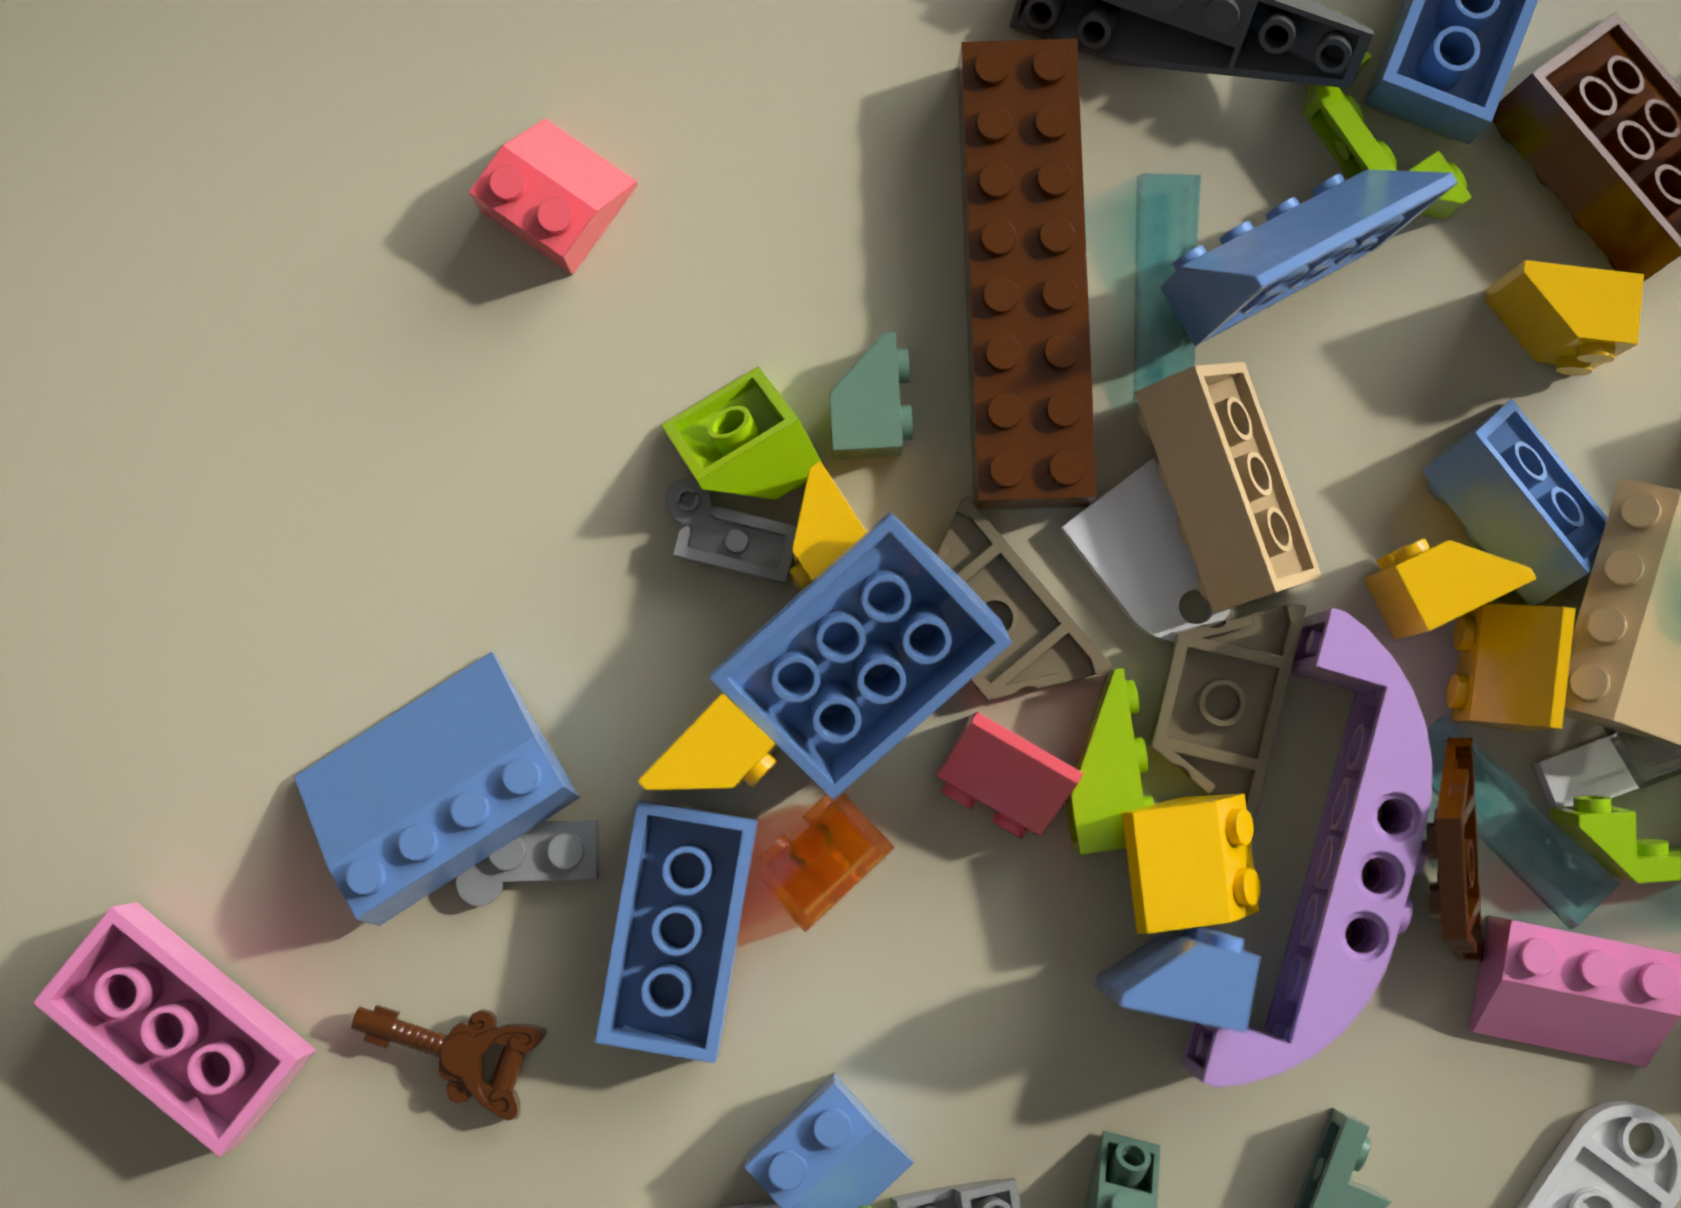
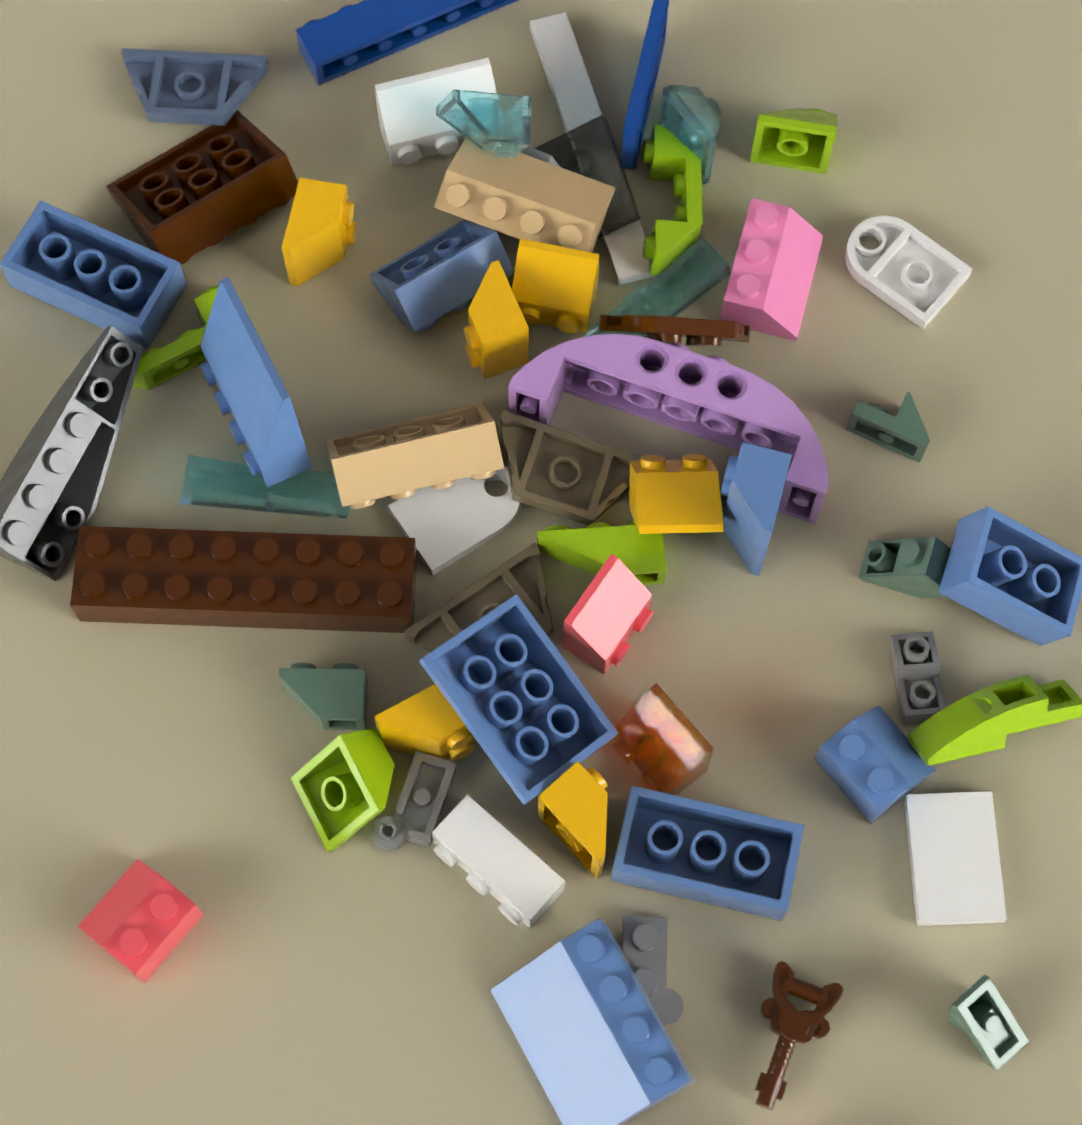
camera: 85 degrees left, 15 degrees down
(653, 647) = (497, 862): none -> white brick

